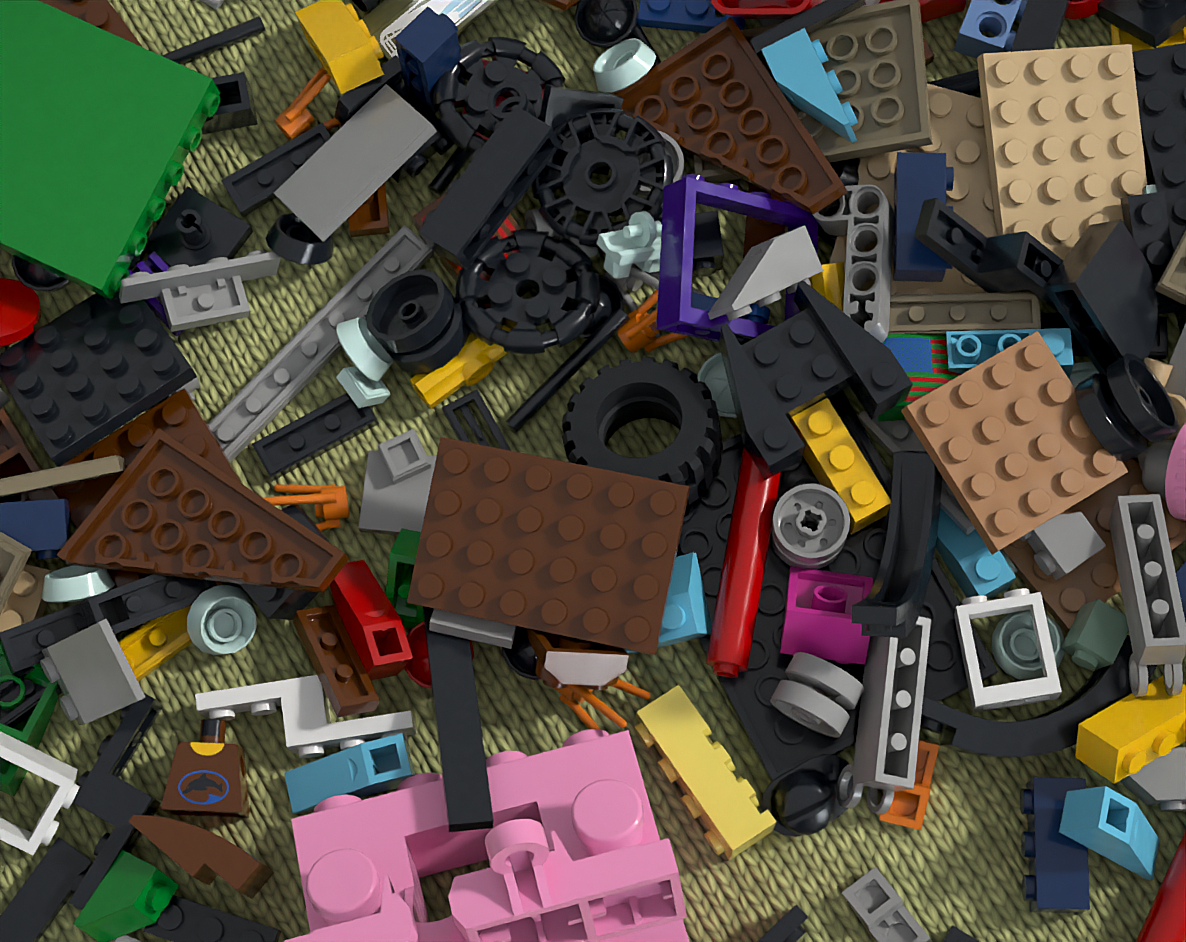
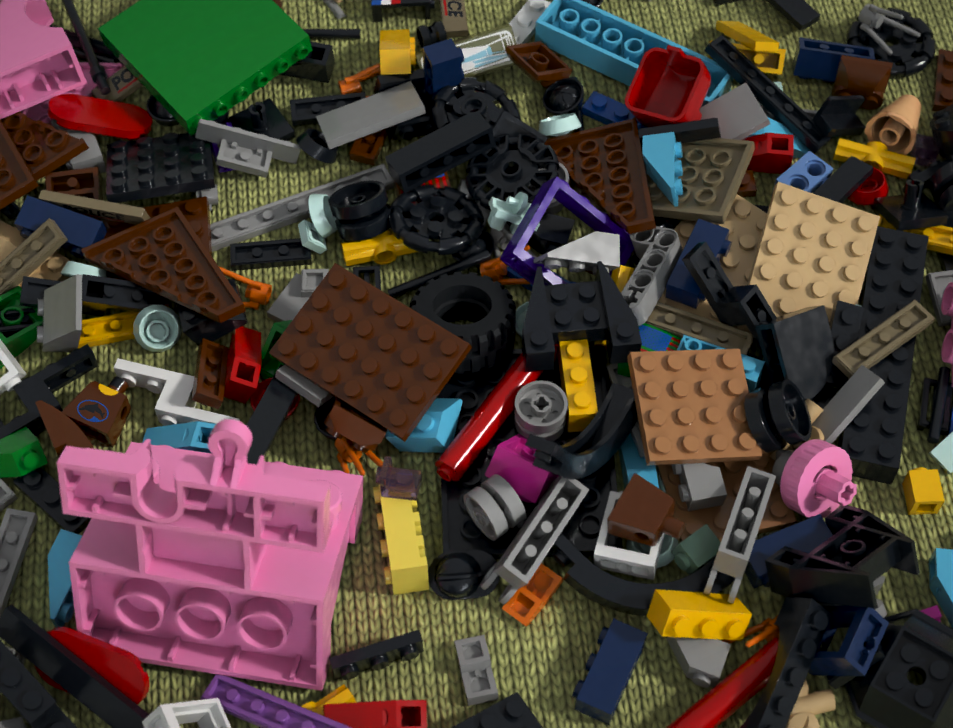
camera: 20 degrees right, 15 degrees down
(675, 713) = (398, 482): none -> bracket
(1023, 627) = (644, 514): none -> reddish brown torso
(1112, 828) = (651, 669): medium azure slope -> none

